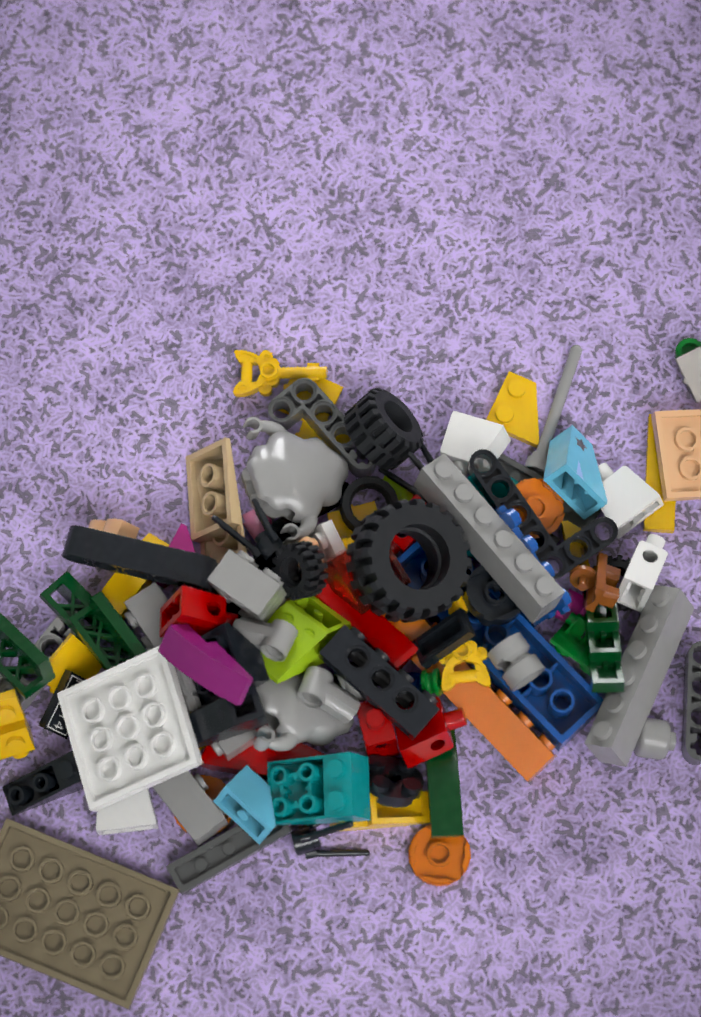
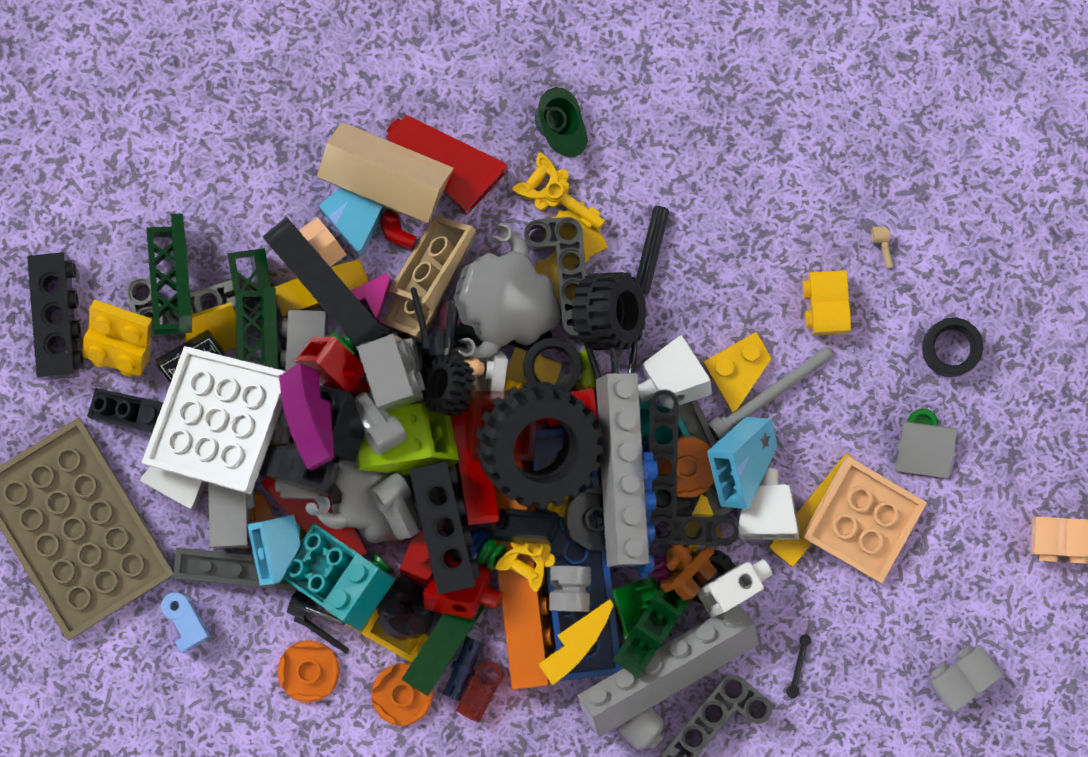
camera: 35 degrees right, 10 degrees up
(119, 487) = (352, 217): none -> medium azure slope
(123, 445) = (384, 172): none -> tan slope
(160, 491) = (393, 231): none -> red arm
(167, 408) = (473, 170): none -> red slope
(210, 917) = (186, 619): none -> light blue leg
(235, 315) = (561, 122): none -> dark green piece
(348, 891) = (319, 667): none -> orange tile
(377, 360) = (652, 247): none -> black axle
(473, 797) = (463, 668): none -> dark blue pin
(501, 806) = (479, 693): none -> clear red piece
(547, 311) = (827, 303): none -> yellow brick
(550, 233) = (882, 236): none -> tan hand
(552, 702) = (576, 642): none -> yellow slope
(674, 258) = (972, 335): none -> black tyre

